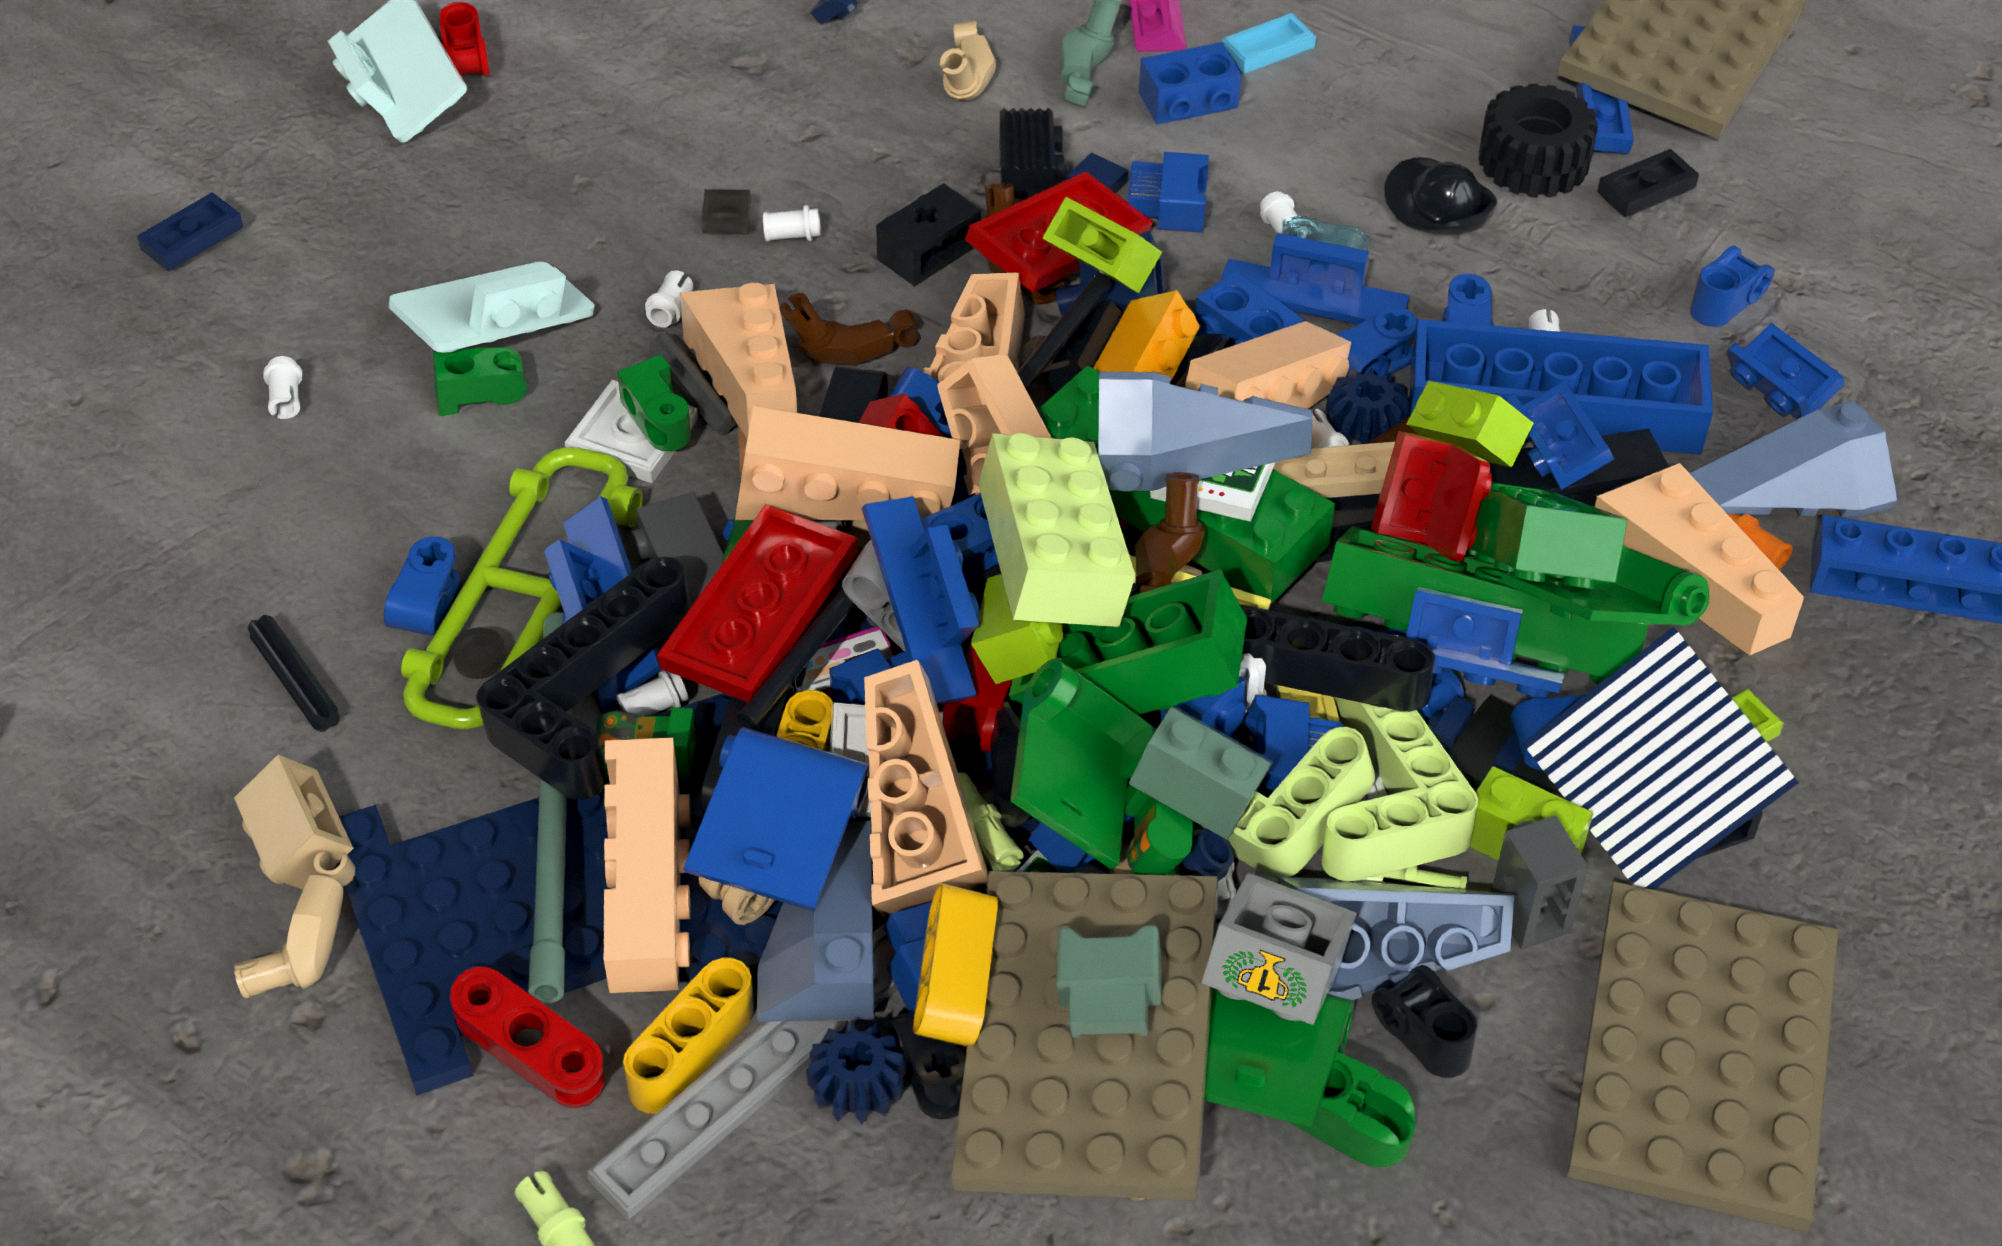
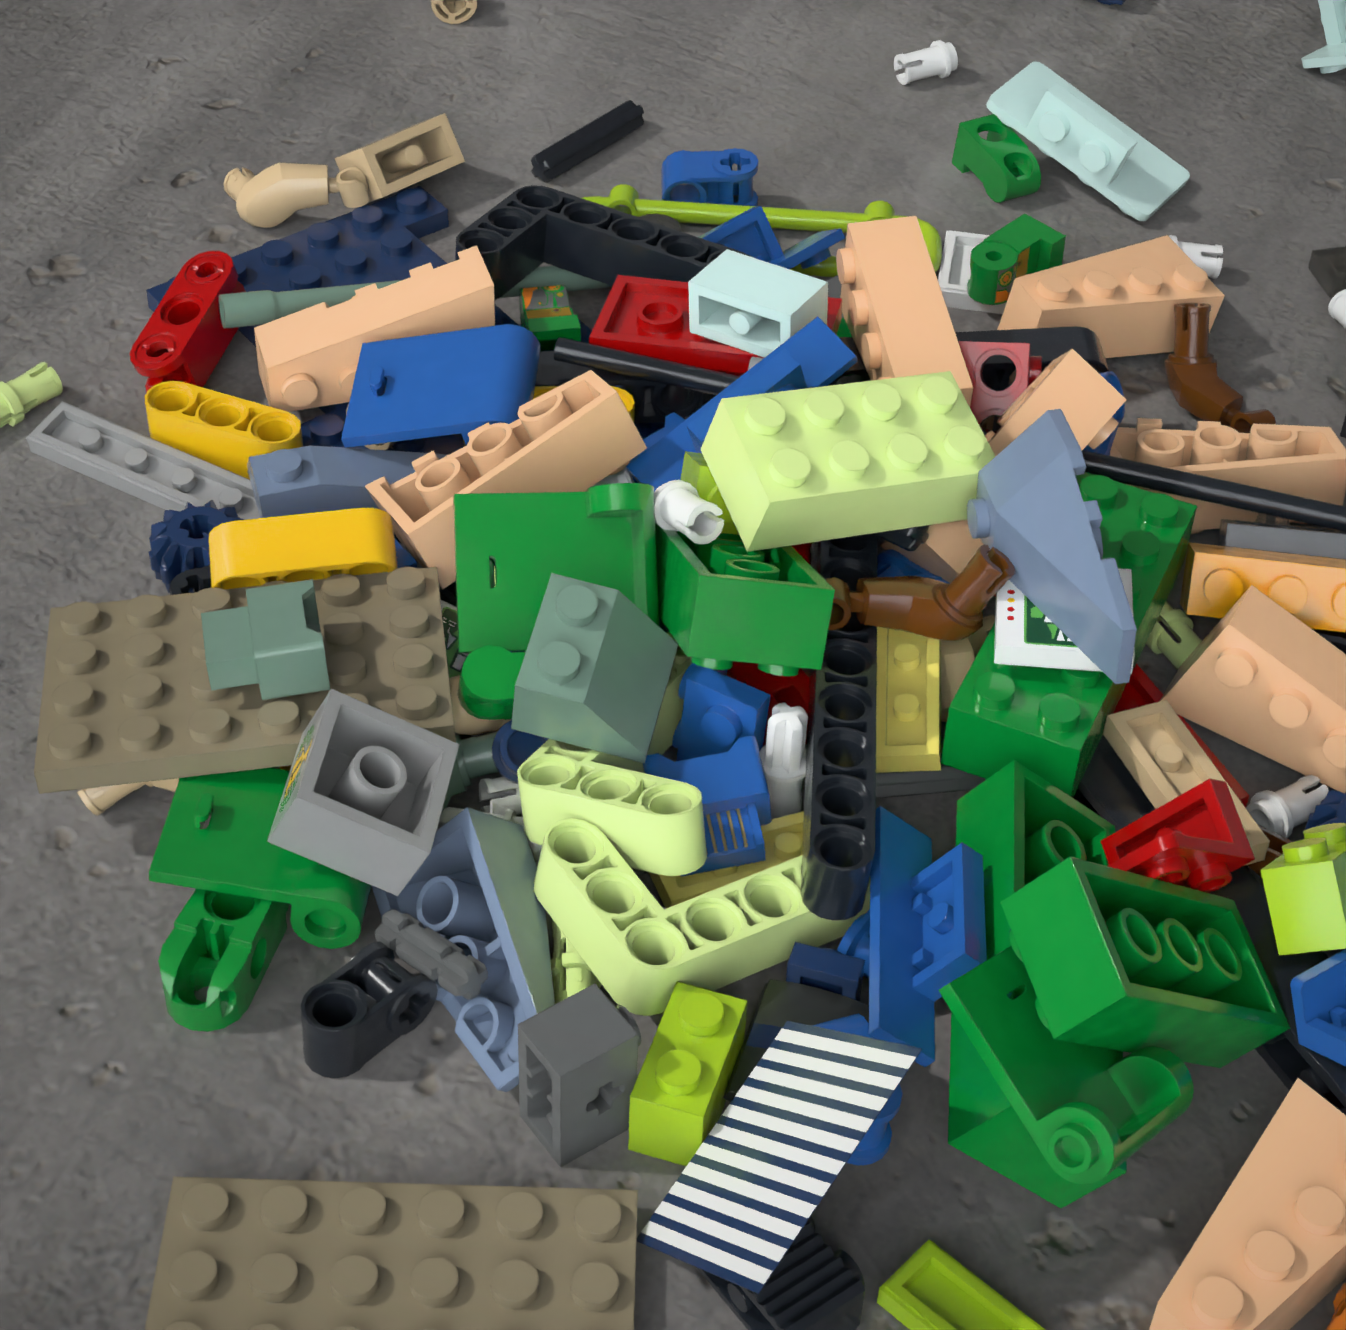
camera: 75 degrees right, 5 degrees down
(790, 553) = (753, 302): none -> light aqua brick
(1073, 648) = (683, 510): none -> white pin
(1395, 960) = (432, 954): none -> dark grey axle

